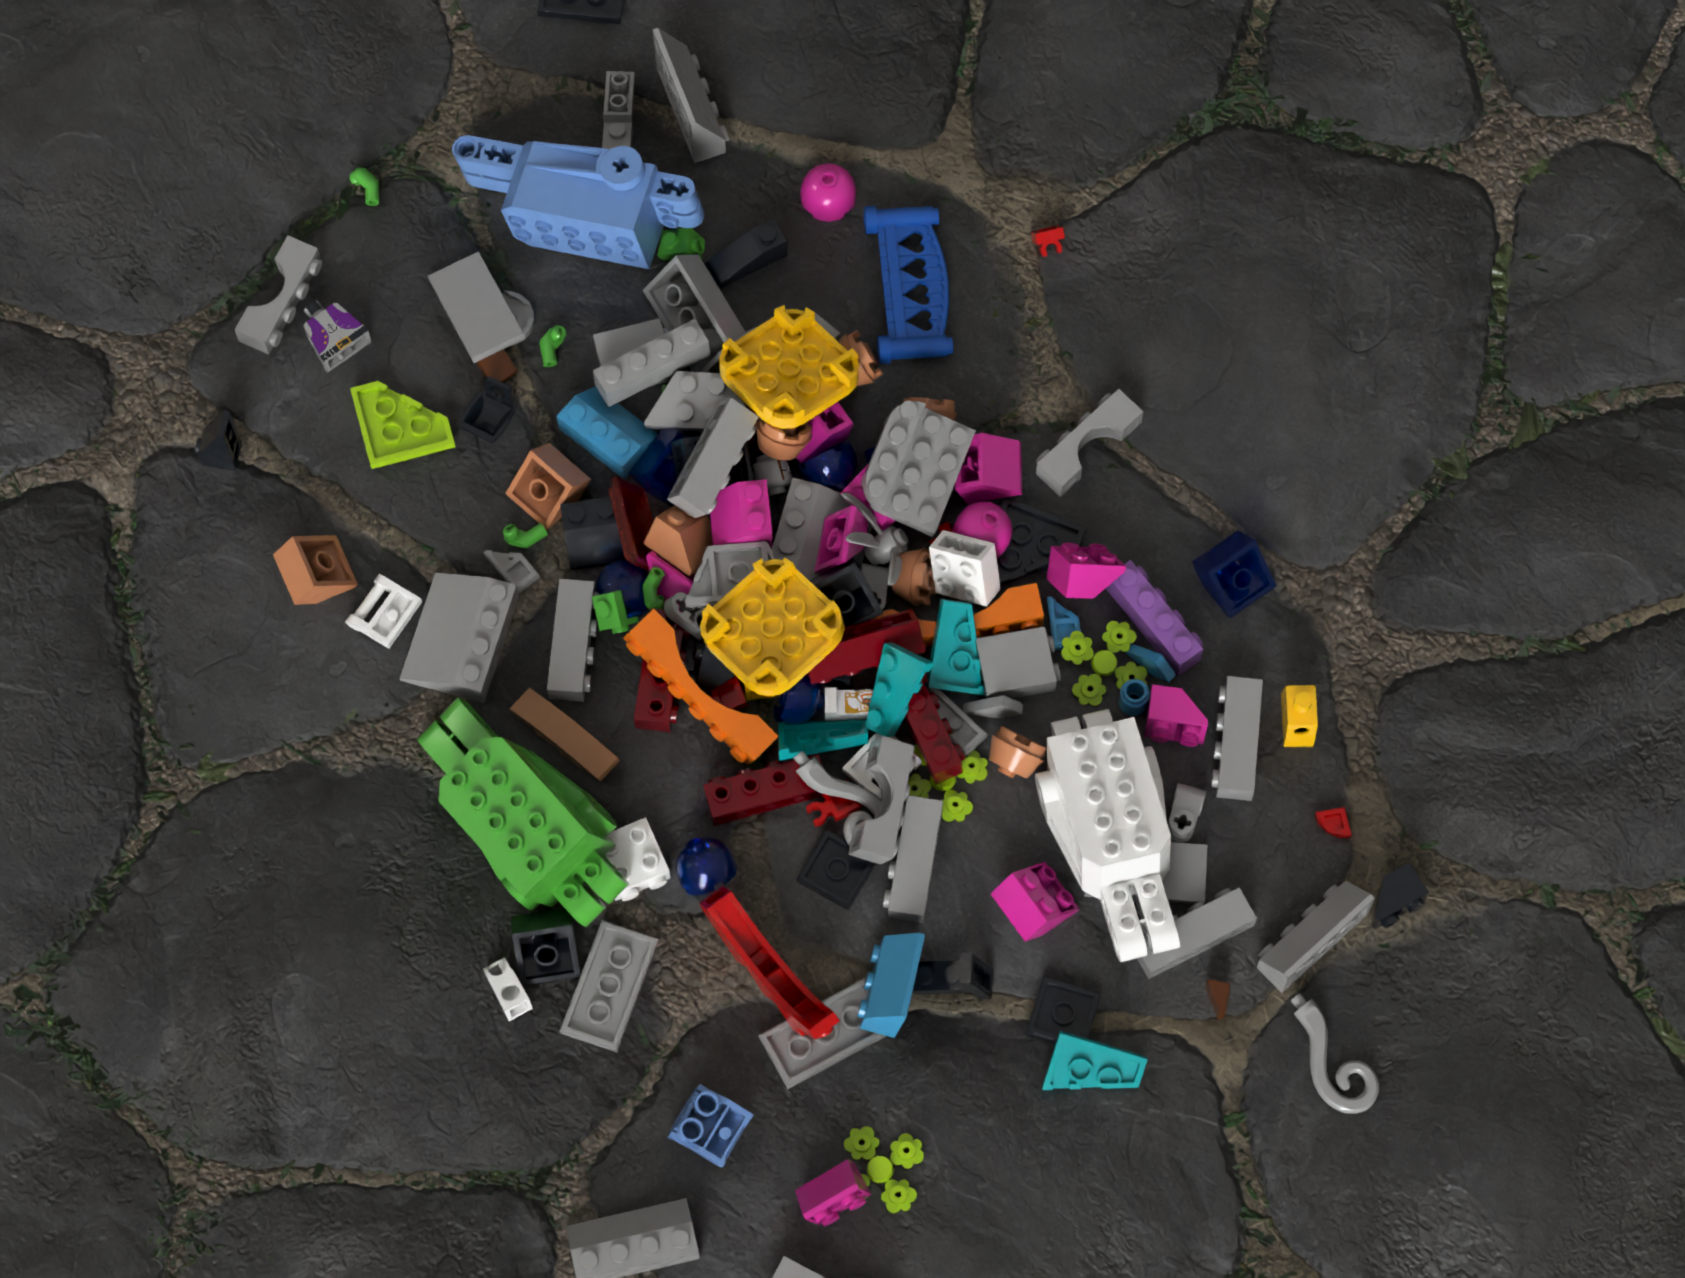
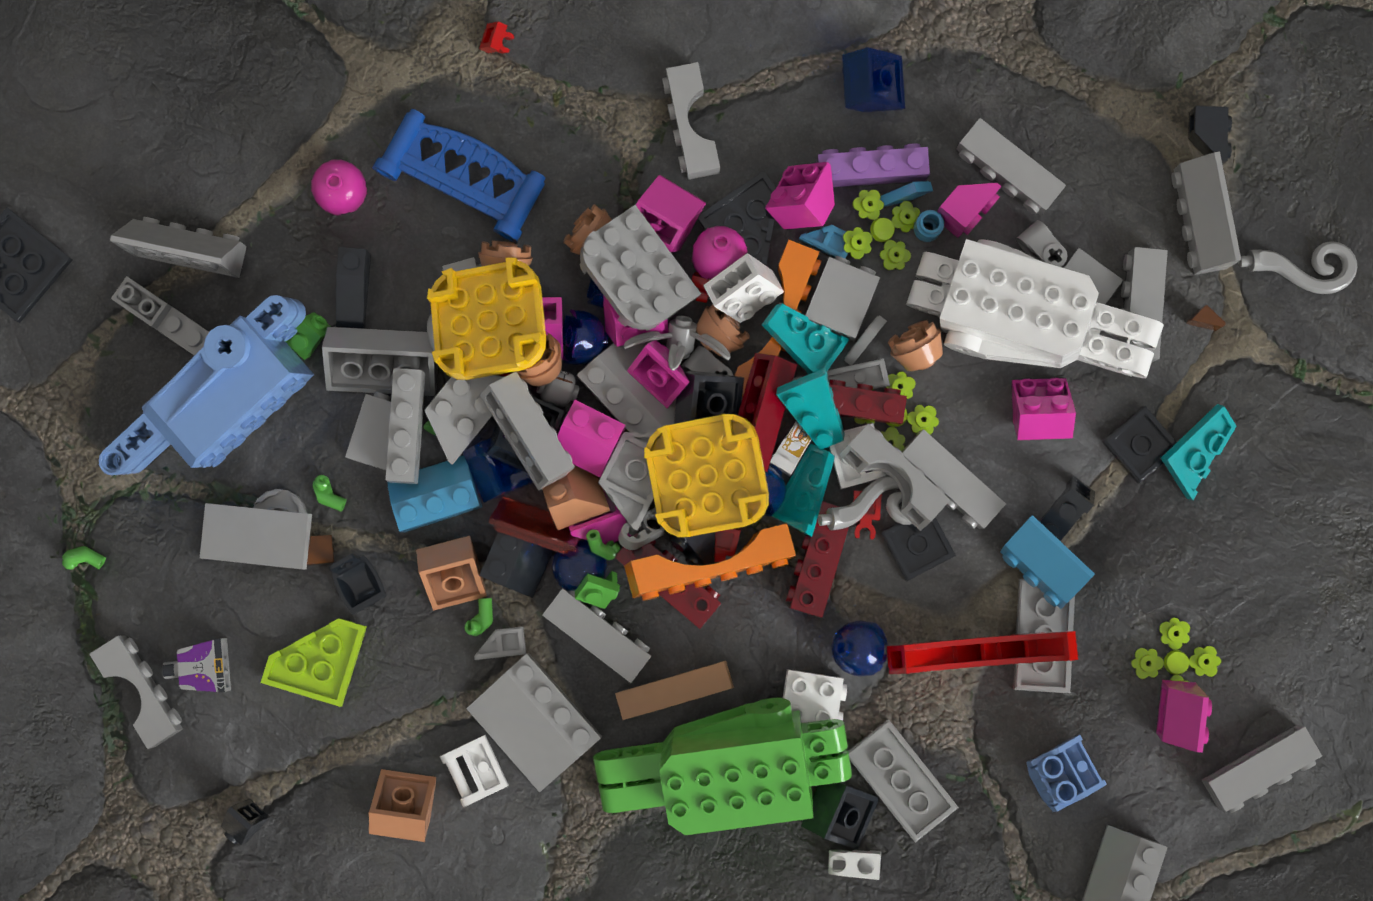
camera: 60 degrees left, 15 degrees up
(1299, 711) = (1021, 108): yellow torso -> none
(1334, 822) = (1119, 139): red tile -> none

